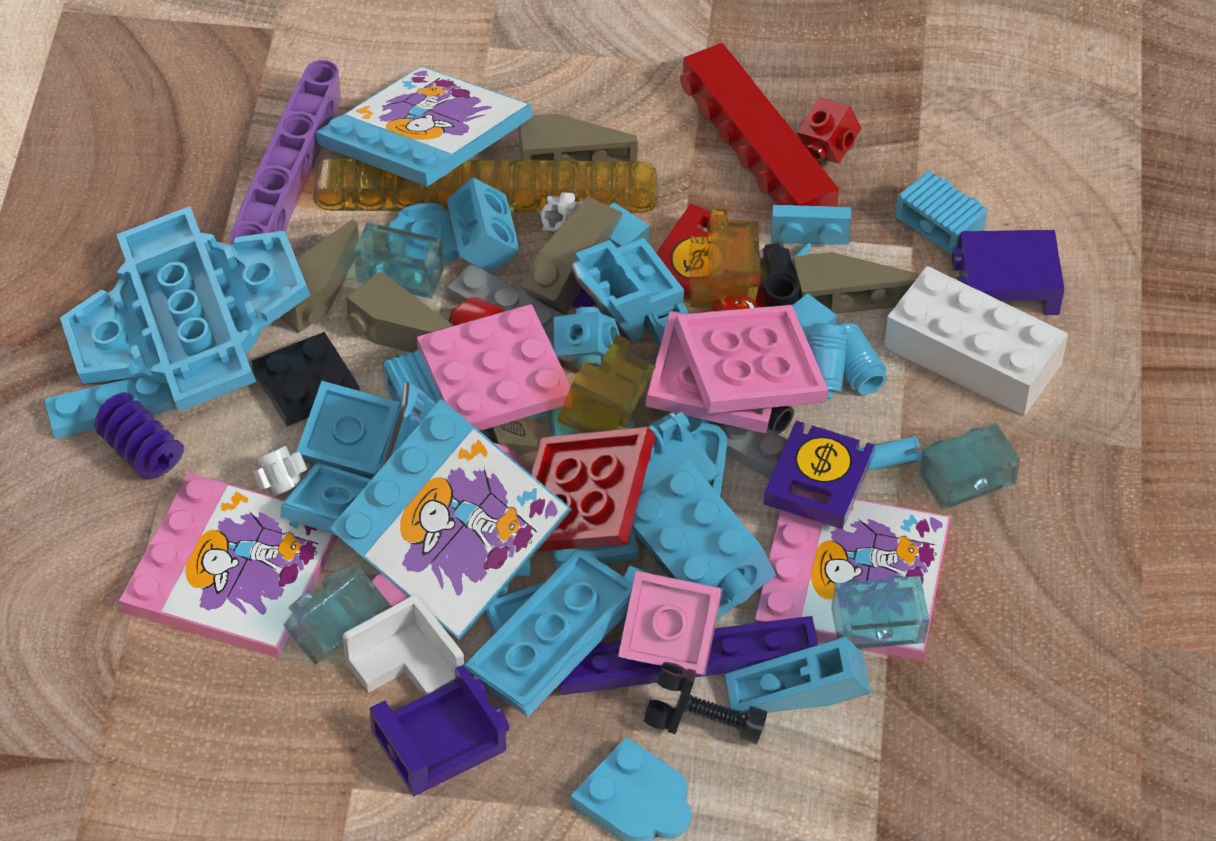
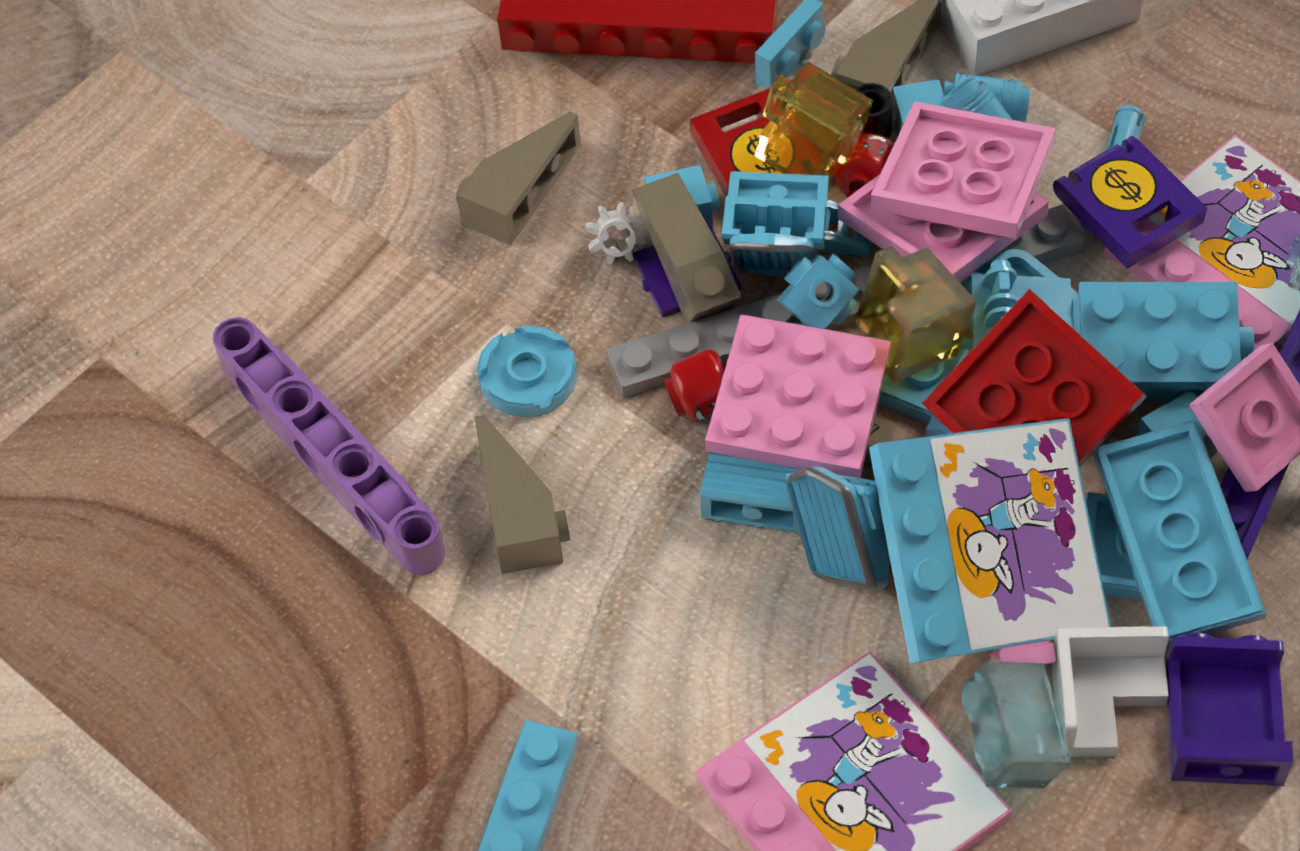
camera: 50 degrees left, 5 degrees up
(137, 436) = (614, 794): dark purple piece -> none
(185, 308) = (471, 647): medium azure plate -> none
(279, 470) = (767, 676): white gear -> none
(295, 374) = (640, 587): black plate -> none
(322, 496) = (845, 645): medium azure tile -> none
(347, 429) = (756, 581): medium azure plate -> none
(391, 314) = (634, 453): dark tan slope -> none
(404, 256) = (562, 406): clear light blue brick -> none
(424, 125) = (395, 284): plate -> none
(483, 225) = (574, 307): medium azure brick -> none
(527, 184) = (503, 286): clear yellow beam -> none
(969, 466) = (1187, 86): clear light blue brick -> none

